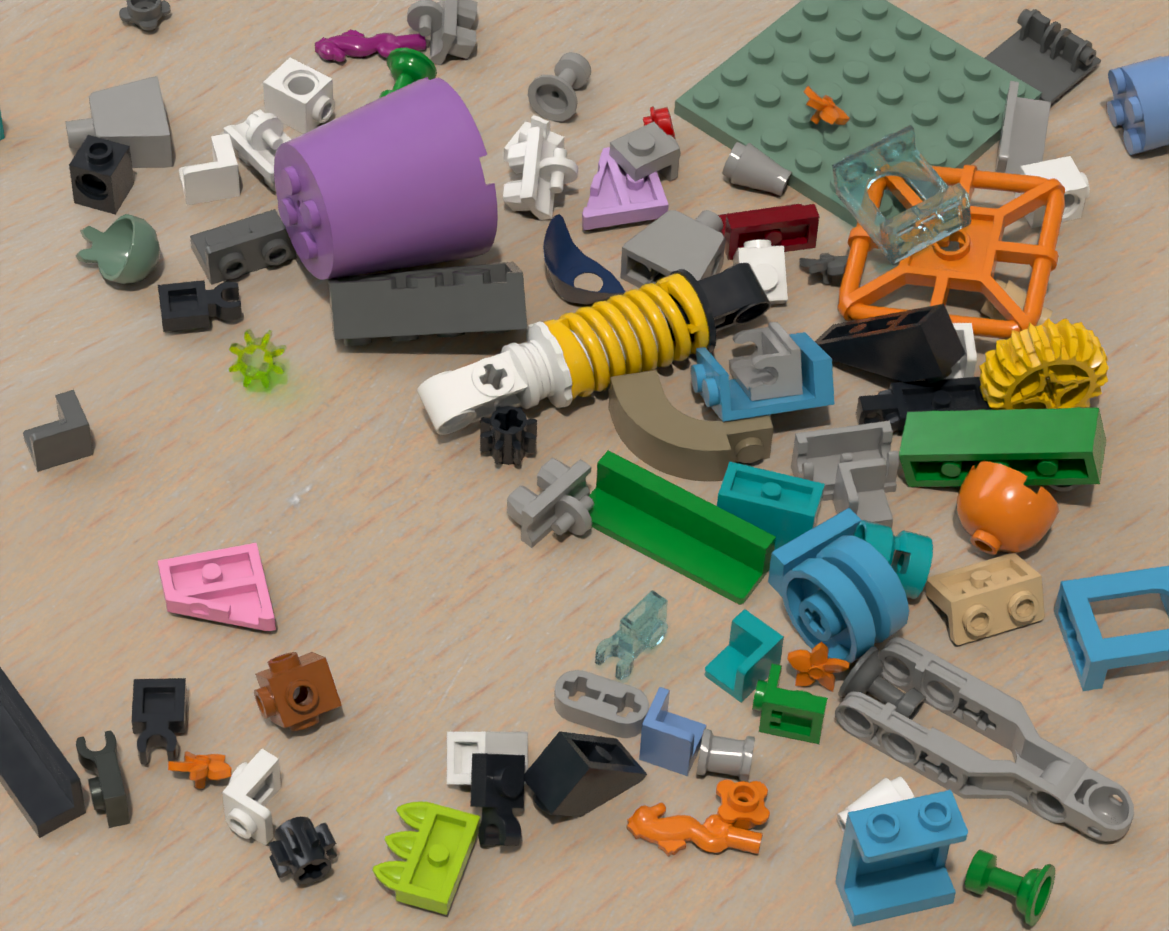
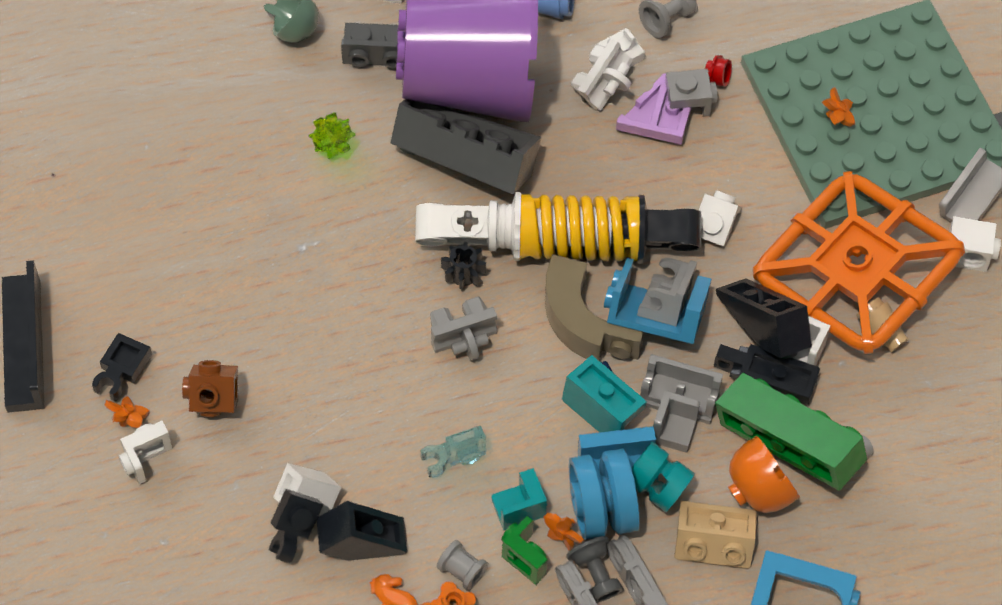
camera: 30 degrees right, 10 degrees up
(62, 439) = (175, 137): dark grey panel -> none
(107, 788) = (62, 399): pearl dark grey plate -> none
(190, 304) = (315, 73): black plate -> none
(219, 587) = (212, 290): bright pink wing -> none
(302, 850) = (151, 501): black gear -> none
(433, 855) = (231, 543): lime plate -> none
(567, 262) = (588, 146): dark blue piece -> none
(600, 704) = (401, 494): light grey beam -> none
(669, 738) = (433, 531): medium blue panel -> none
(674, 244) = (665, 176): light grey torso -> none
(679, 529) = (534, 387): green panel -> none
(756, 170) = (764, 134): light grey cone -> none
(786, 226) = (747, 183): dark red panel -> none
(829, 264) = (770, 230): dark grey plant -> none
(916, 228) = (839, 234): clear light blue panel -> none
(1044, 368) = (858, 387): yellow gear -> none

